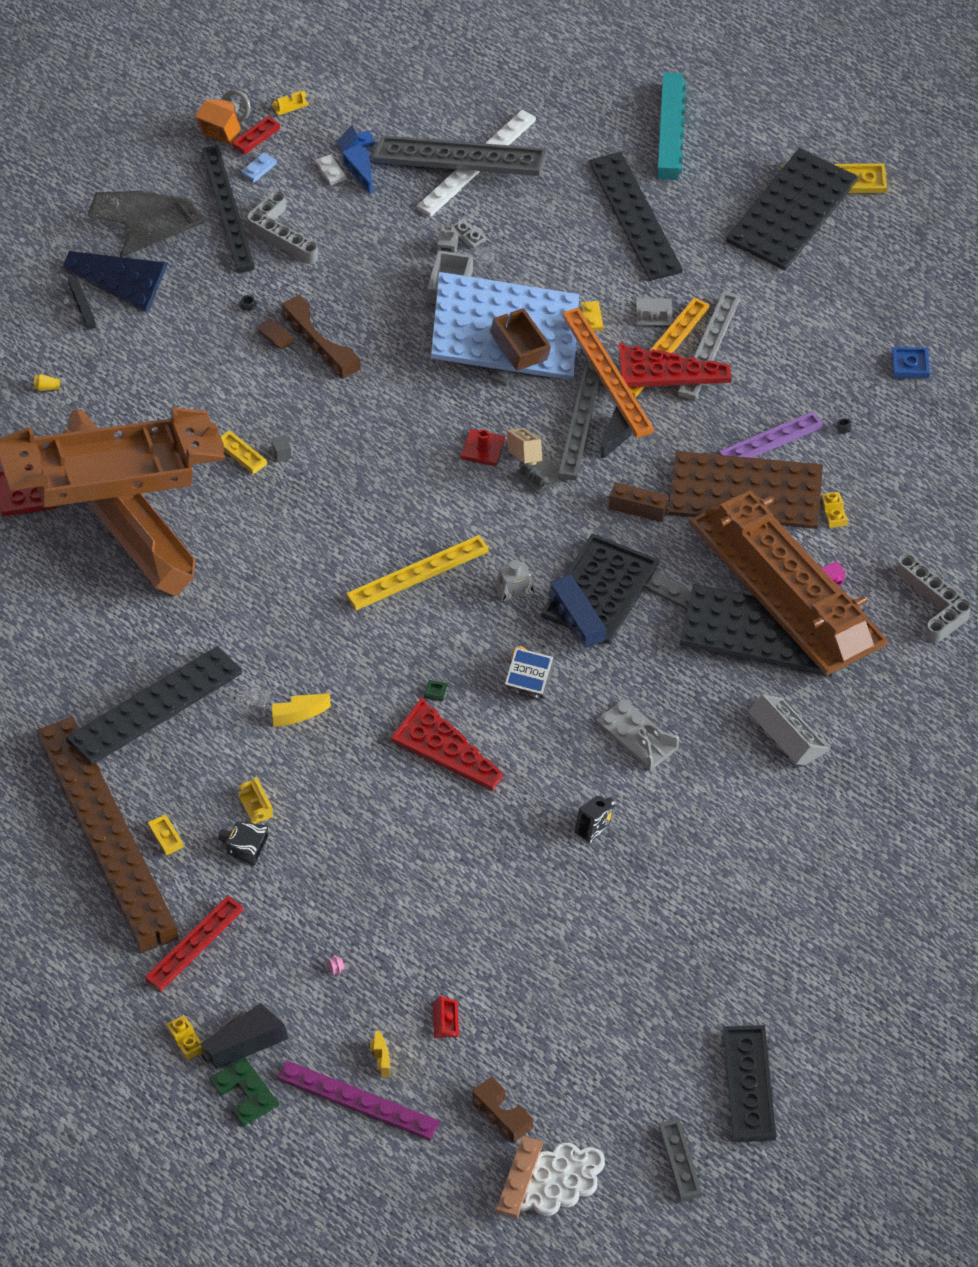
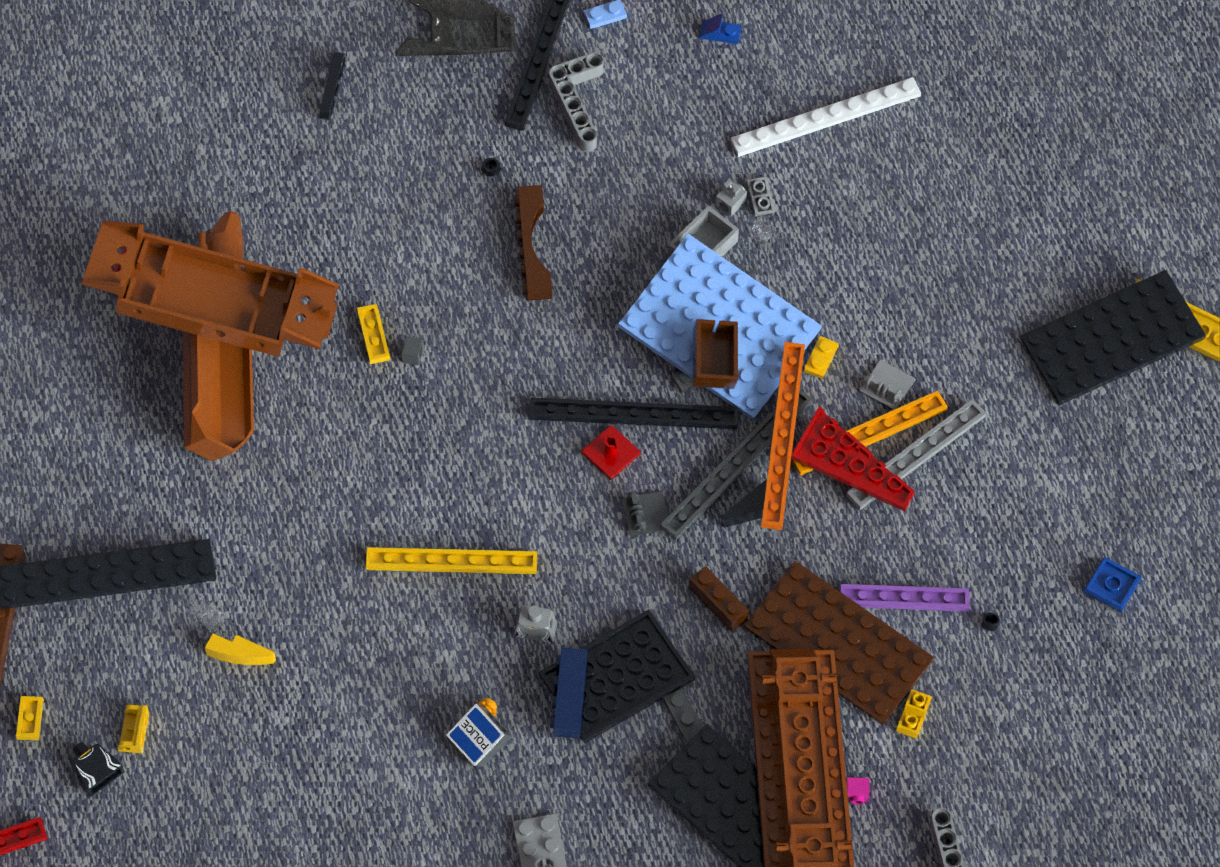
camera: 30 degrees right, 10 degrees up
(45, 383) = (240, 158): yellow cone -> none
(125, 277) = (385, 74): dark blue wing -> none
(275, 333) = (493, 216): reddish brown slope -> none
(330, 169) = (674, 52): white plate -> none
(358, 163) = (705, 62): blue slope -> none
(435, 690) = (382, 701): dark green tile -> none
(441, 743) = (345, 758): red wing -> none
(460, 155) = (809, 103): dark grey plate -> none
(481, 414) = (633, 413): none -> black plate
(524, 445) = (642, 477): tan brick -> none
(635, 216) = (945, 262): black plate -> none
(670, 126) = (1053, 173): teal brick -> none

